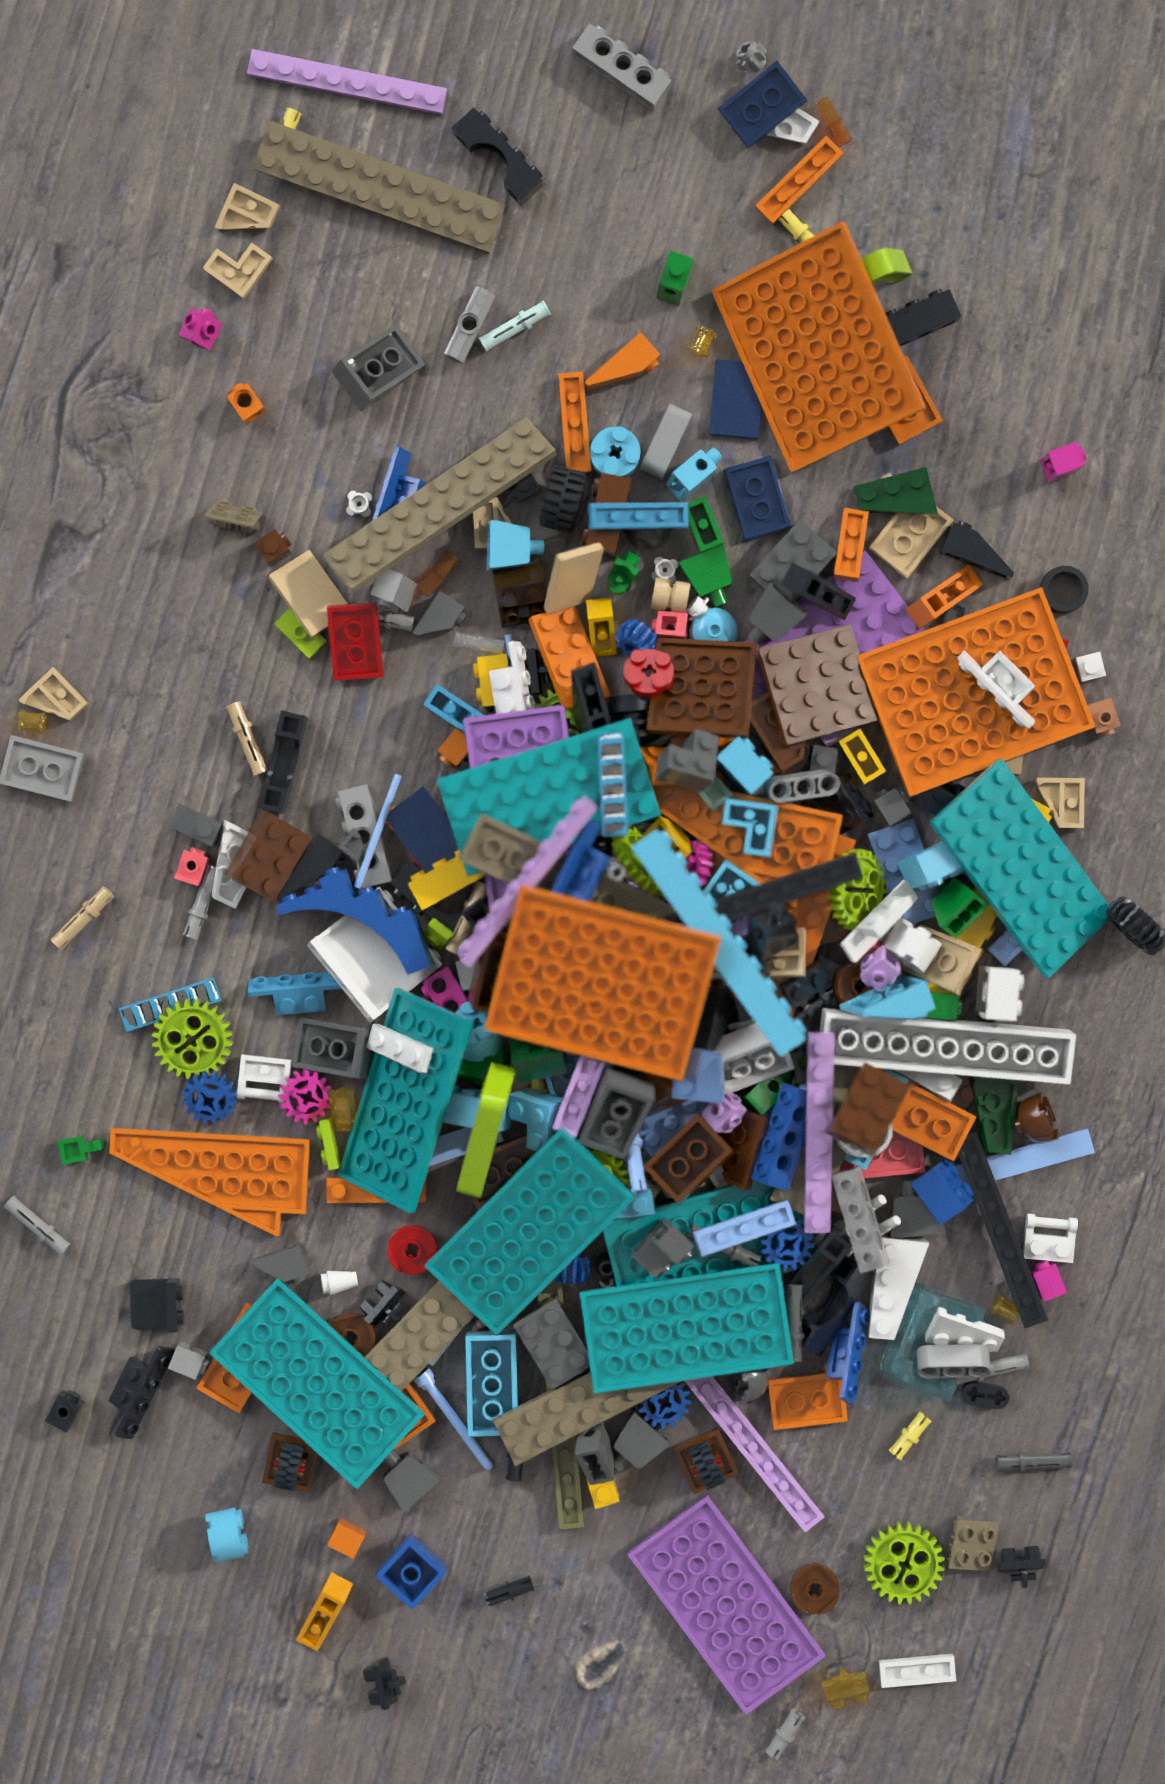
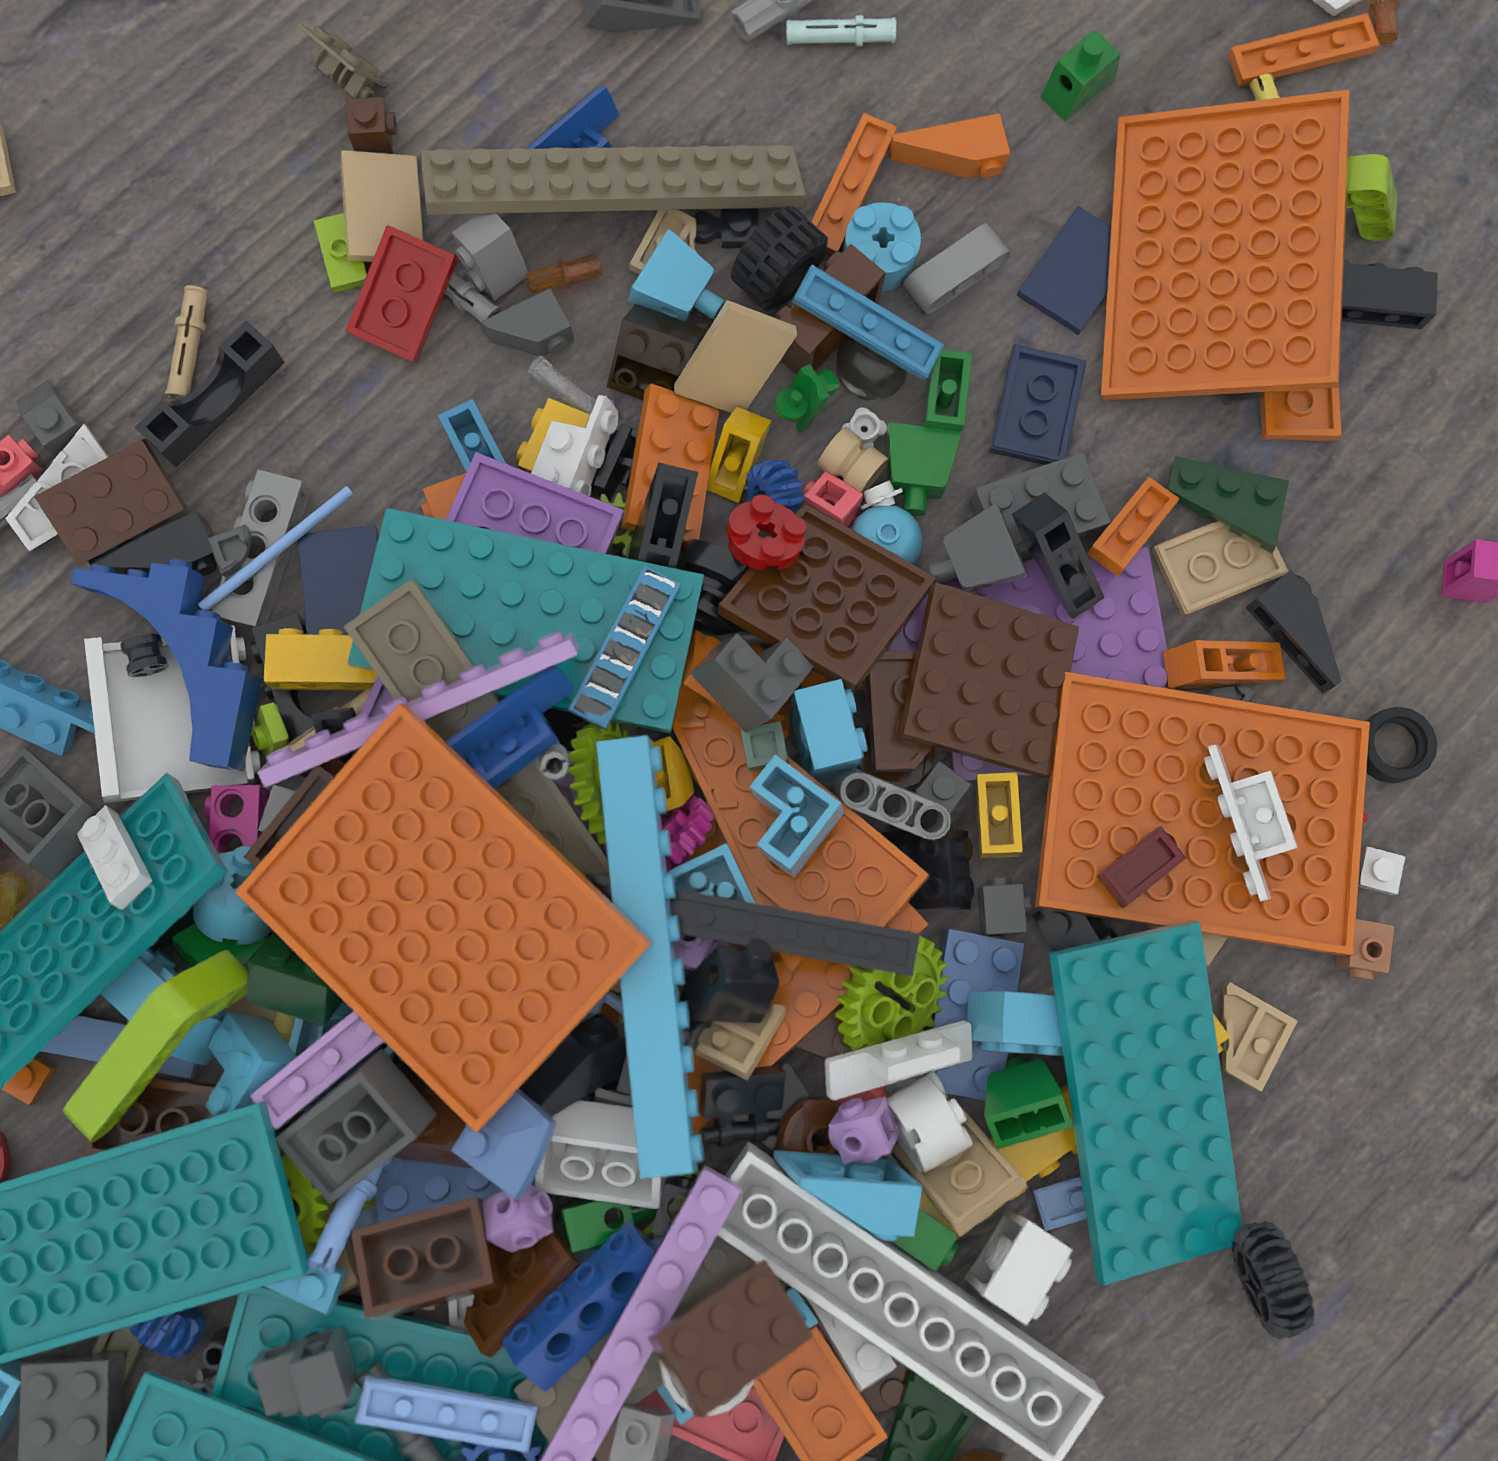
camera: 25 degrees right, 10 degrees down
(344, 931) = (144, 655): none -> black wheel
(354, 498) = (511, 127): white plate -> none
(693, 473) = (972, 321): medium azure torso -> none
(702, 341) = (1072, 173): clear yellow bush -> none
(955, 744) = (1141, 867): none -> dark red tile

